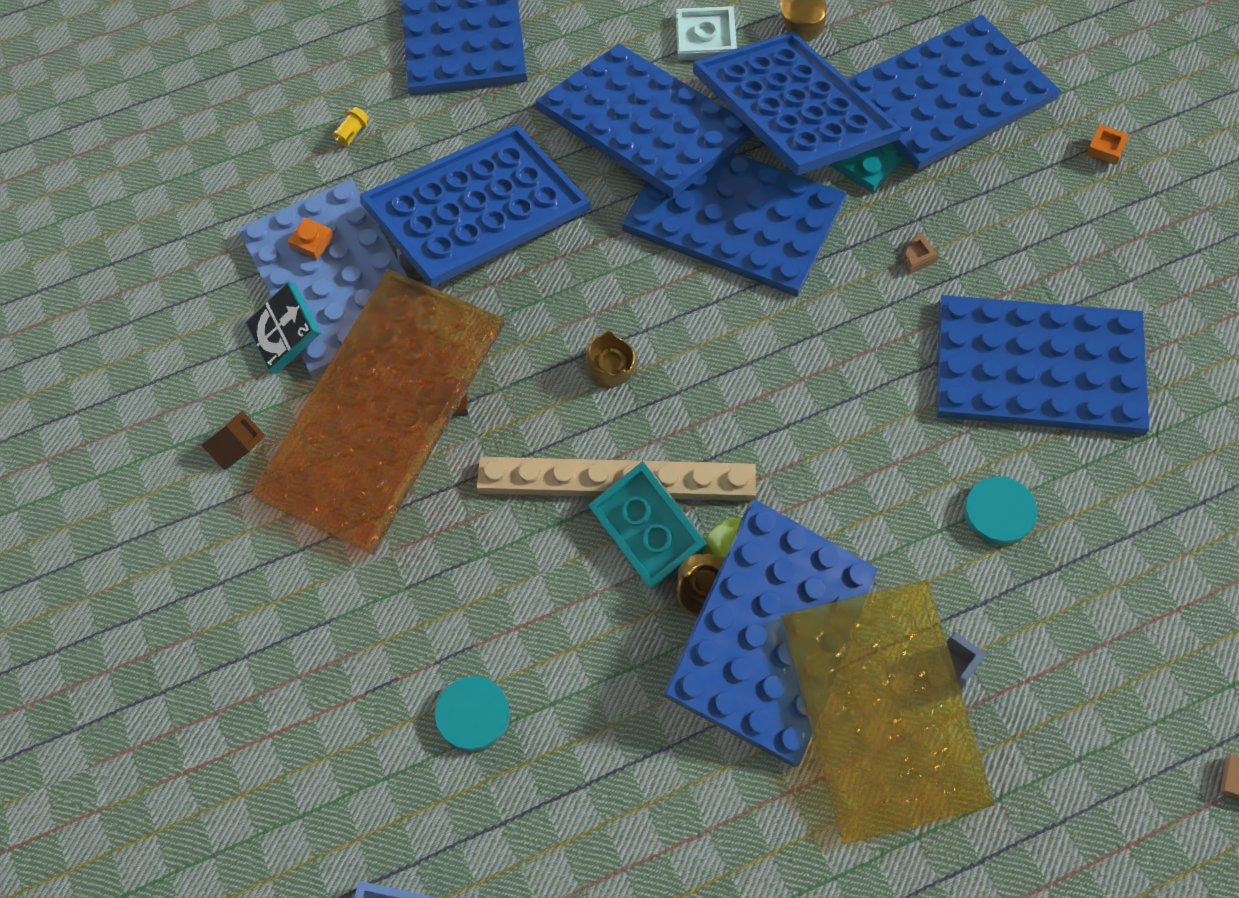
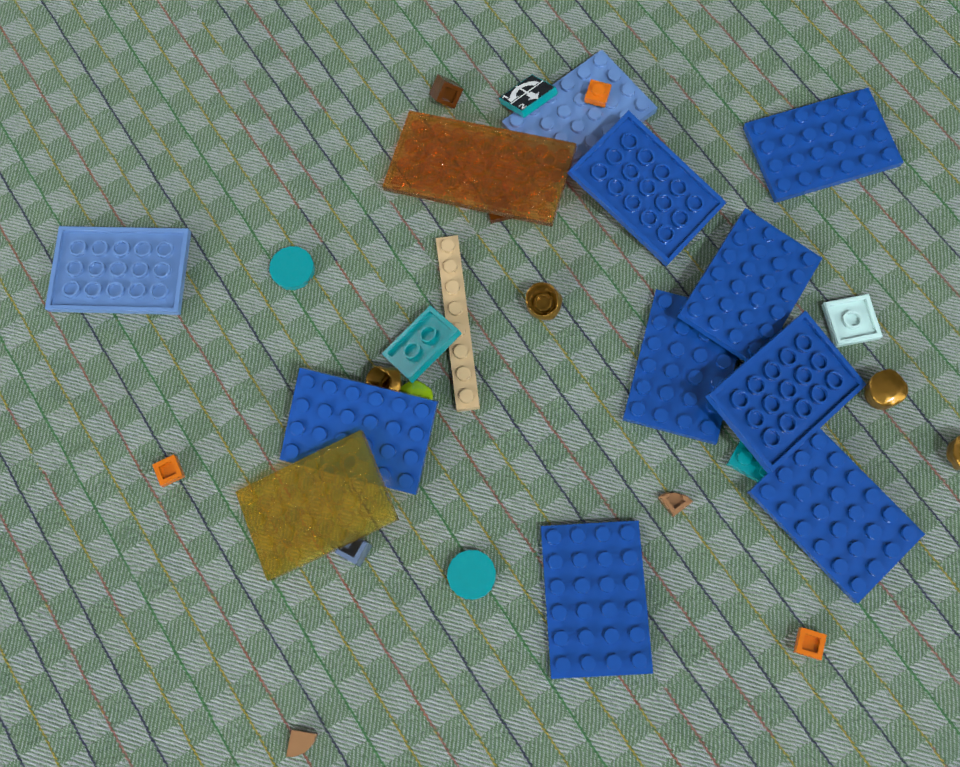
camera: 85 degrees right, 10 degrees up
(355, 120) = (701, 95): yellow pin -> none

